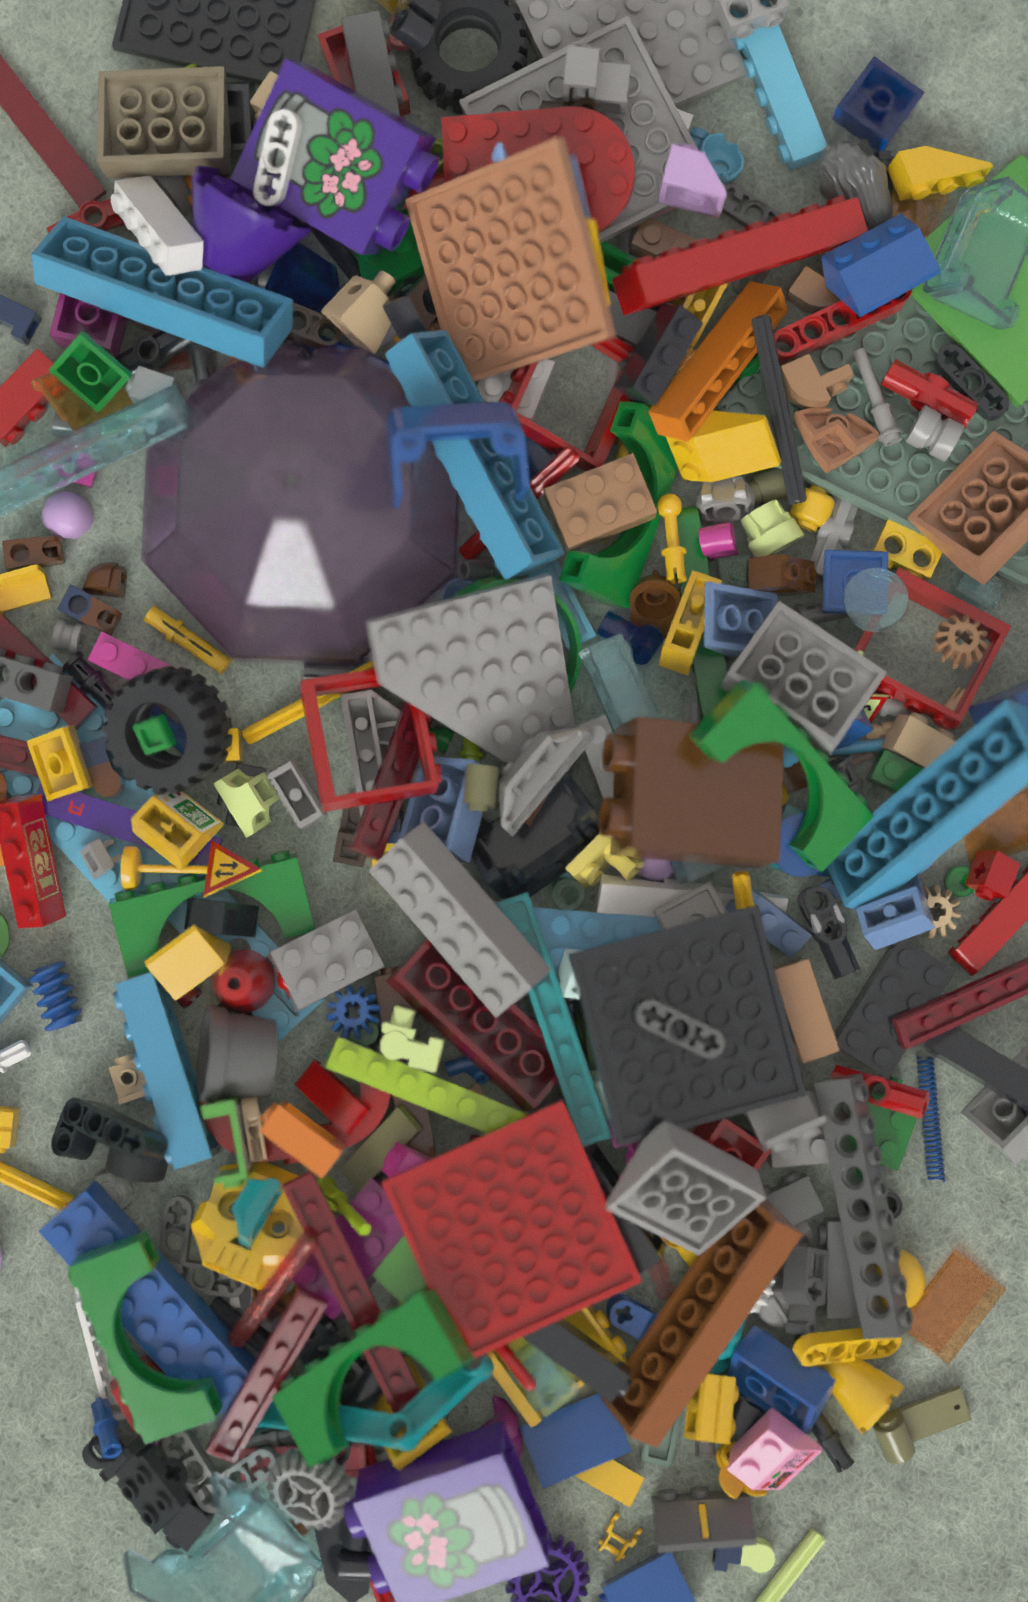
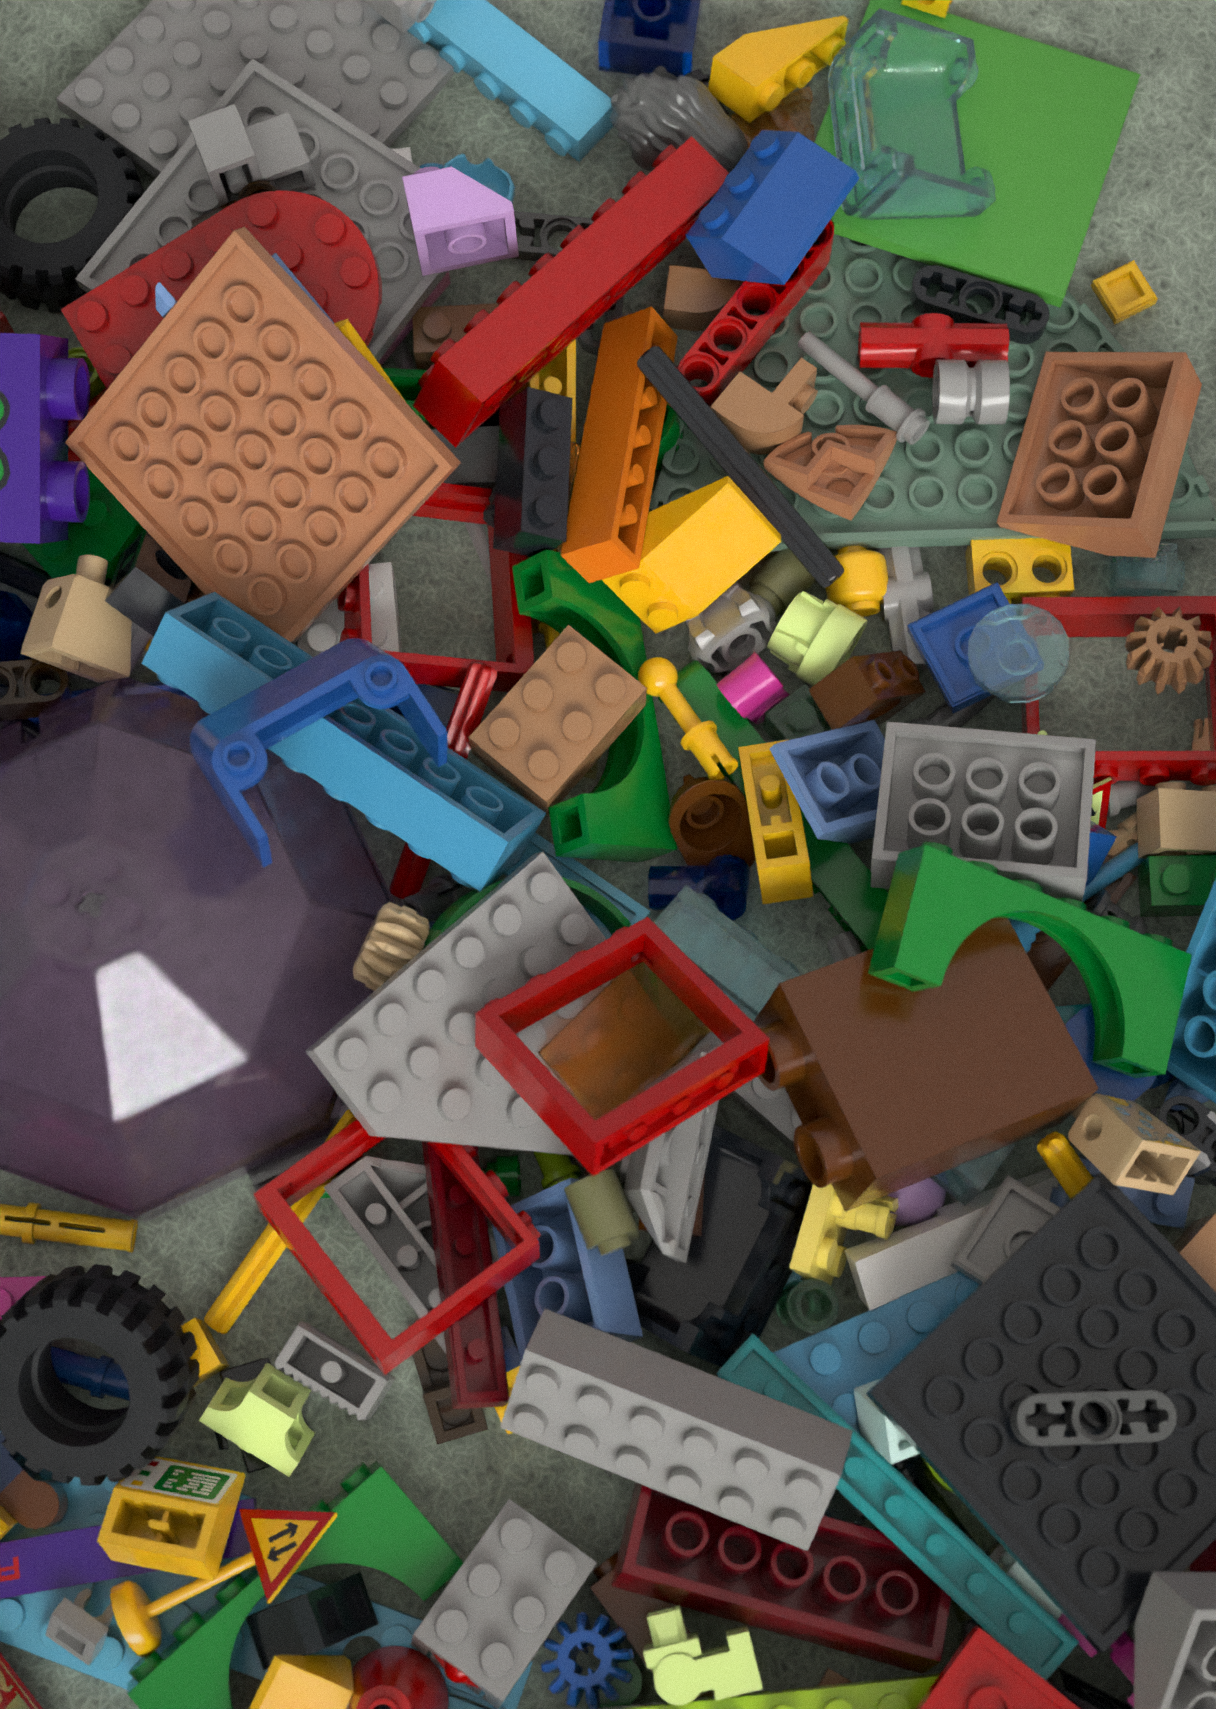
camera: 20 degrees left, 10 degrees down
(154, 734) = (71, 1390): green tile -> none
(441, 583) = (390, 944): none -> tan gear
(463, 1065) = (796, 1651): blue arm -> none
(541, 701) = (622, 1041): none -> clear orange piece
(544, 748) = (658, 1108): none -> red window
(782, 899) = (1131, 1144): none -> tan torso

